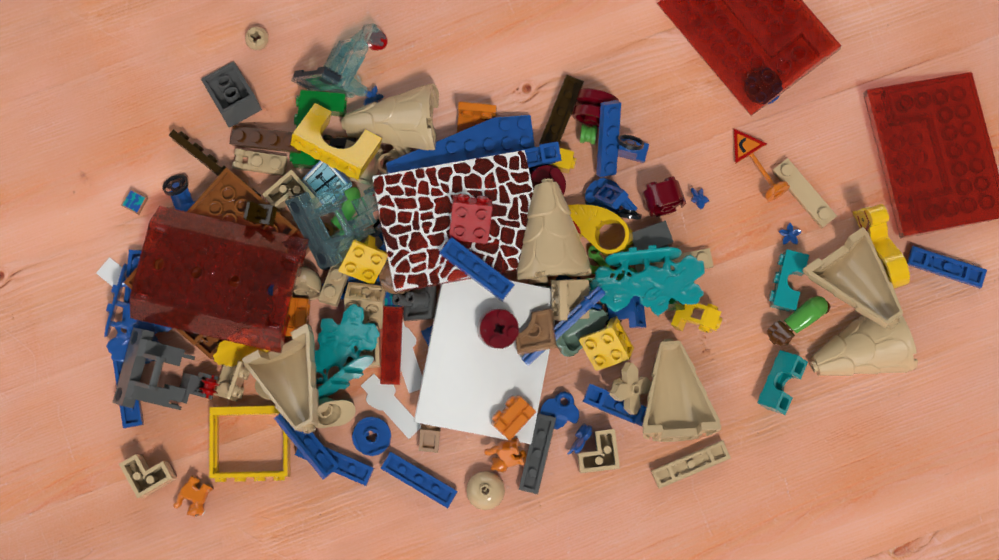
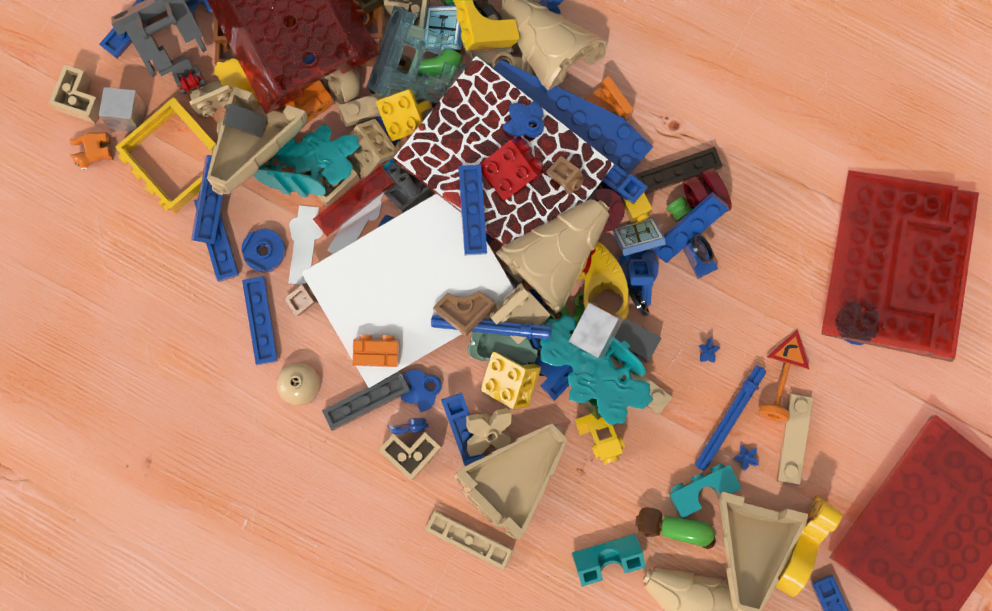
camera: 50 degrees right, 0 degrees up
(187, 450) = (122, 109): none -> flat silver piece
(273, 371) = (244, 120): none -> dark grey slope
(334, 412) = (254, 200): tan piece -> none
(442, 182) = (523, 117): none -> blue plate
(506, 187) = (566, 175): none -> medium nougat bracket
(508, 455) = (342, 375): orange animal -> none
(509, 328) = (426, 277): dark red brick -> none
(584, 176) = (639, 236): none -> tile
(627, 257) = (596, 330): none -> flat silver piece
(663, 197) = (681, 319): dark red brick -> none
(755, 222) = (730, 417): none -> blue axle

